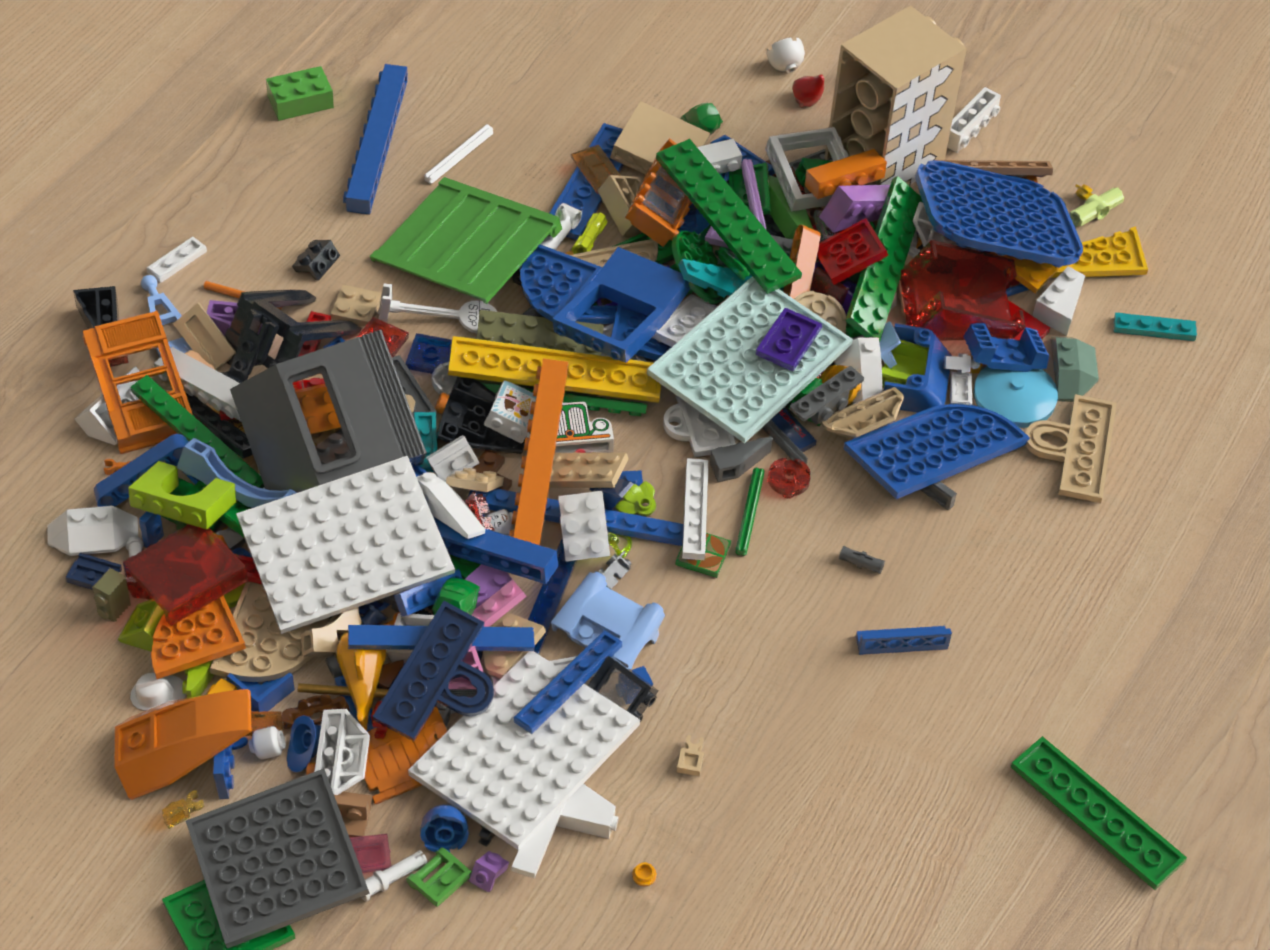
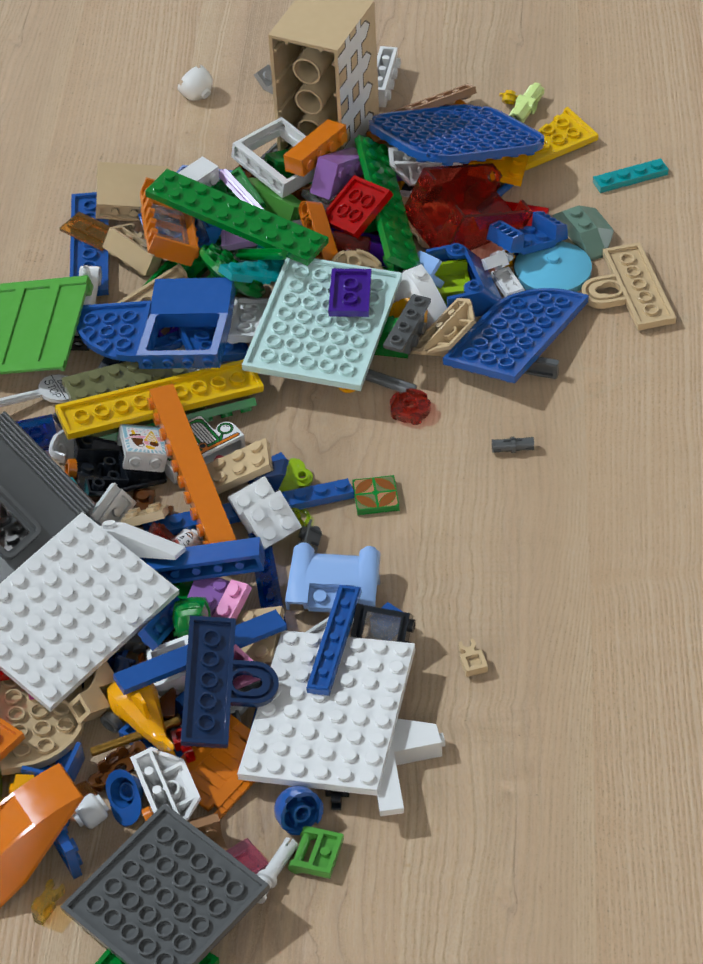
camera: 20 degrees left, 5 degrees down
(487, 870) = (356, 828): medium lavender bracket -> none
(593, 229) = (117, 277): neon yellow axle -> none
(644, 874) = (492, 769): light orange plate -> none
(695, 428) = (306, 397): white plate -> none
(695, 509) = (349, 462): white plate -> none
(704, 117) = (157, 154): green helmet -> none
(736, 459) = (356, 410): dark grey slope -> none
(749, 511) = (394, 446): green axle -> none
(794, 430) = (392, 368): dark blue tile -> none
(808, 90) = (233, 102): red hat -> none
(903, 640) = (587, 491): blue fence -> none
(1060, 300) = (545, 184): white wedge -> none

